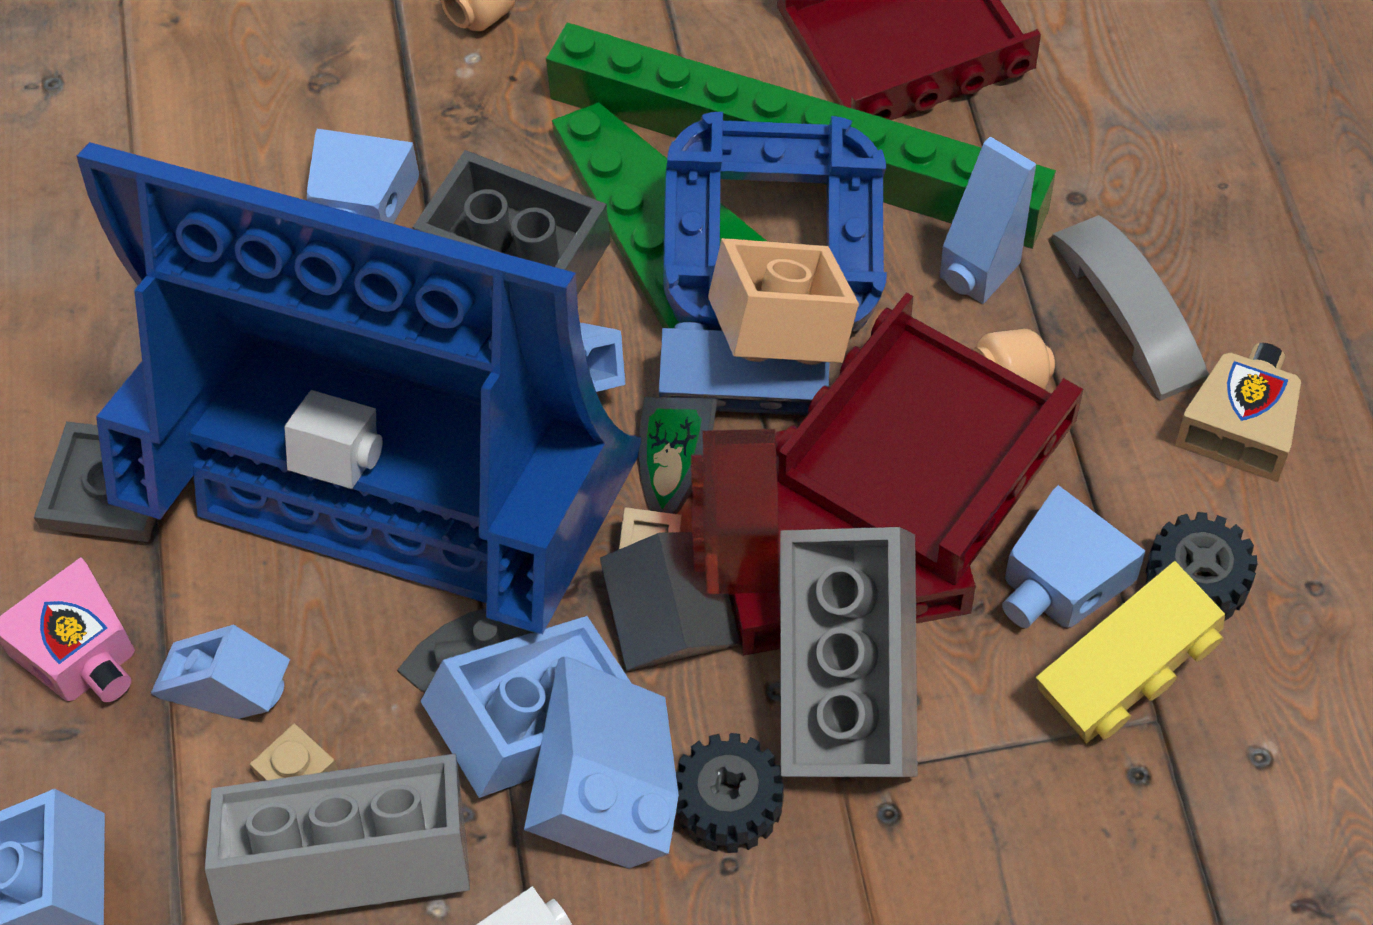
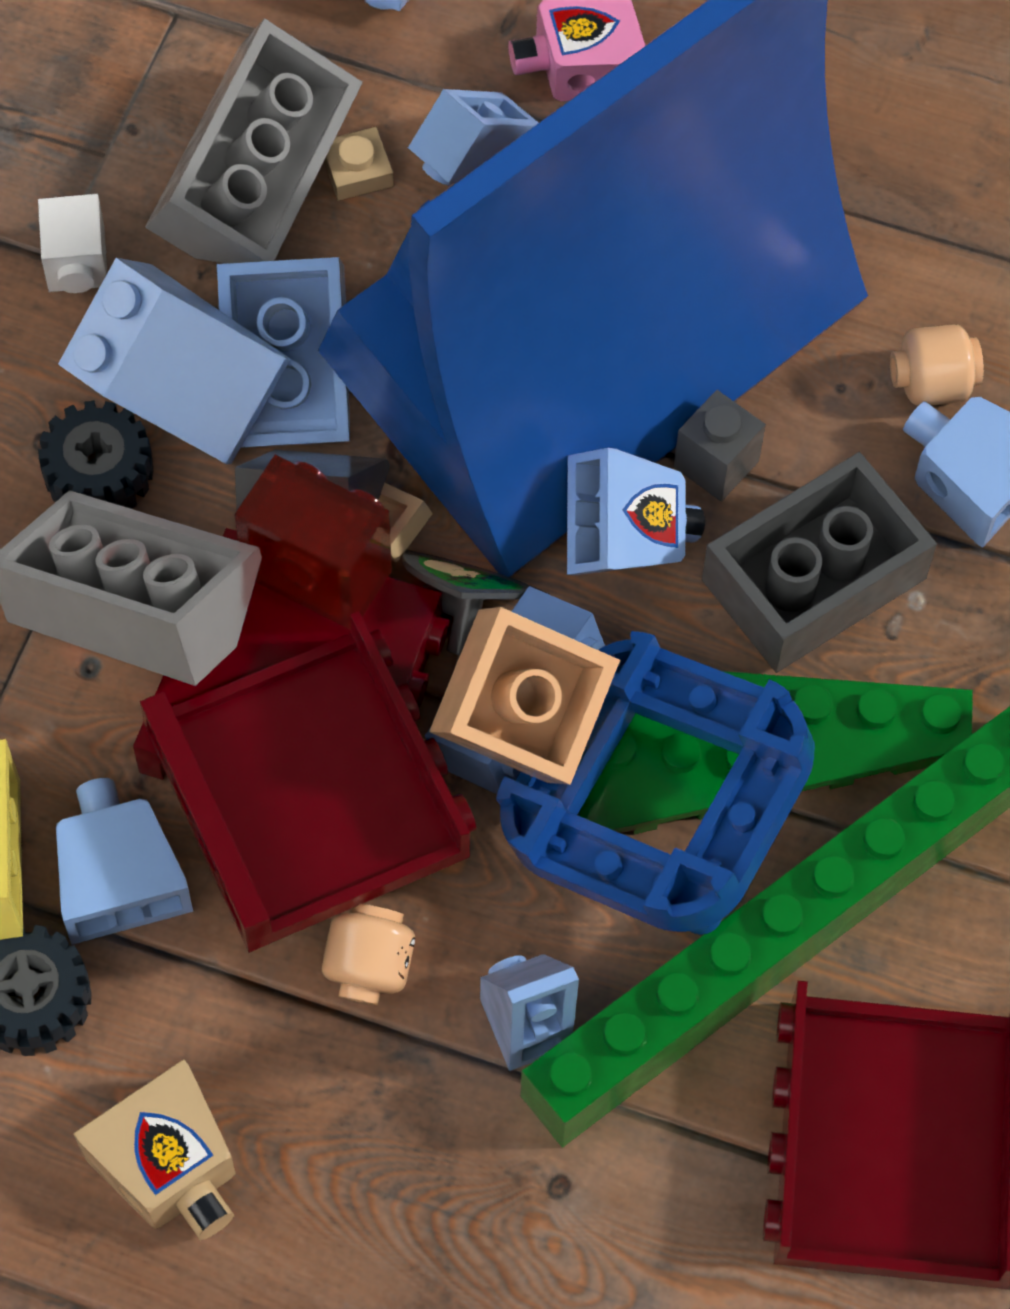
camera: 115 degrees right, 5 degrees up
(1138, 301) = (381, 1135): light grey slope -> none

